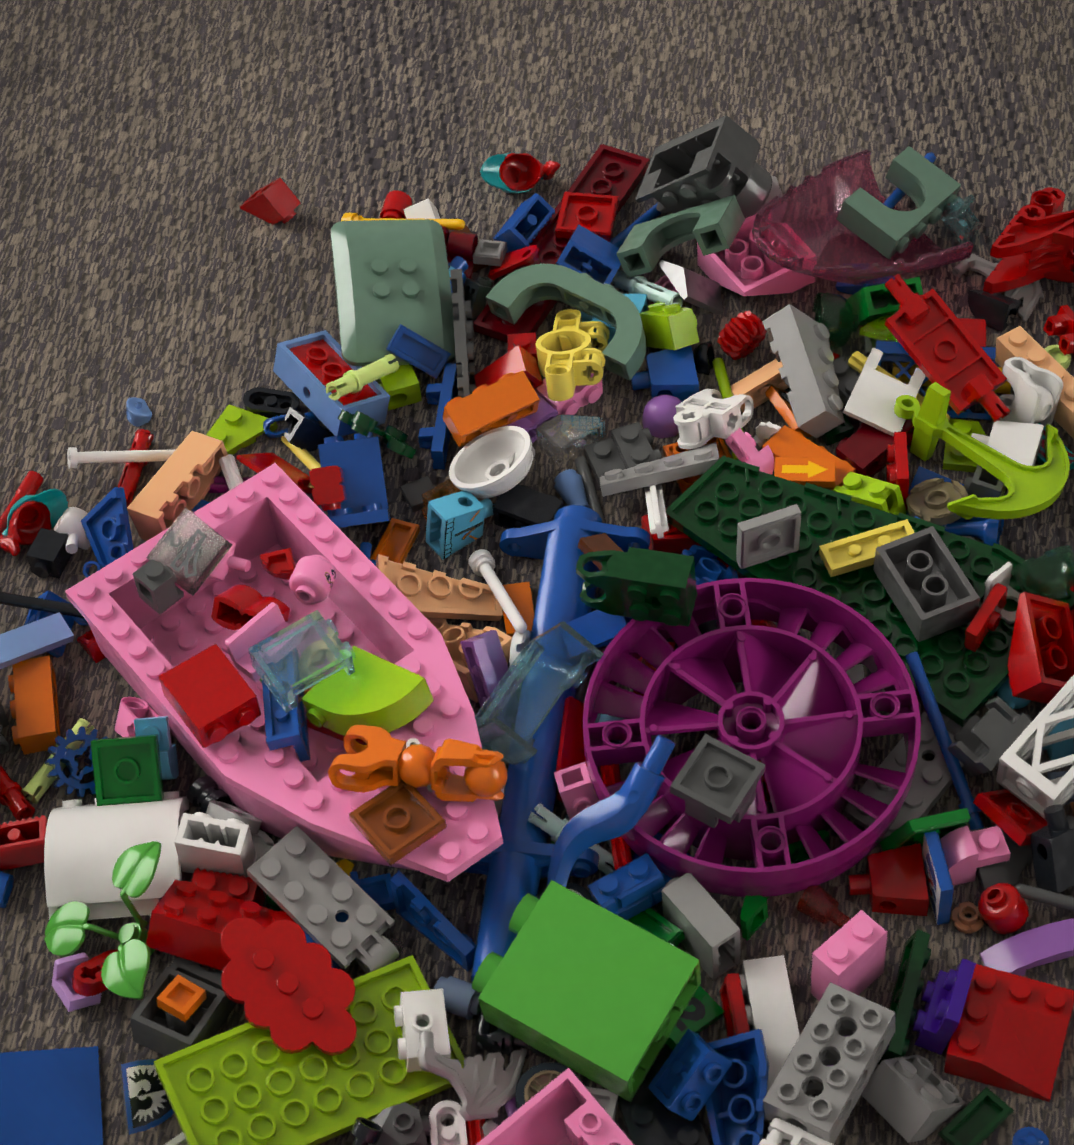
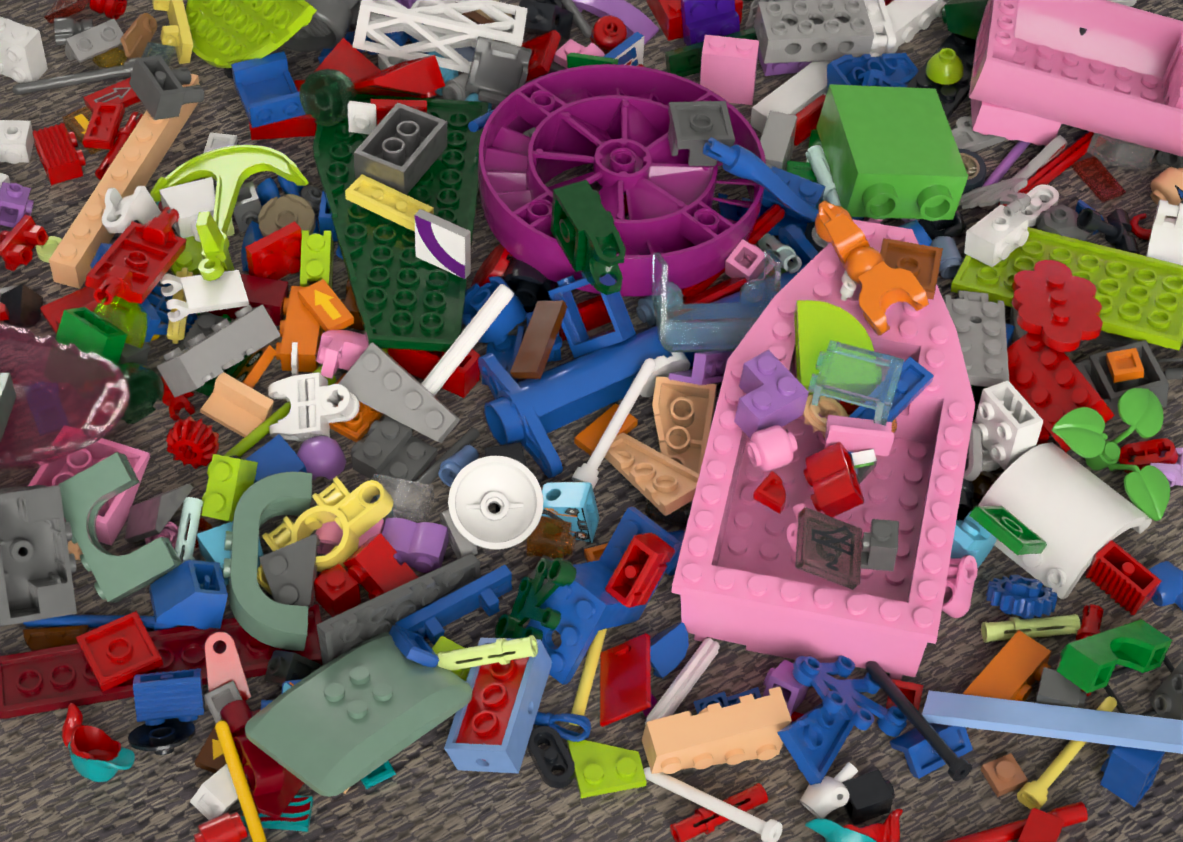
camera: 135 degrees left, 0 degrees up
(210, 696) = (935, 436): red brick -> none
(305, 431) = (563, 697): black brick -> none
(359, 610) = (771, 395): none -> medium lavender brick
(490, 407) = (440, 538): orange brick -> none
(495, 202) = (163, 737): none -> black dish
(551, 316) = (292, 572): none -> dark grey wing
(632, 209) = (53, 636): none -> reddish brown tile

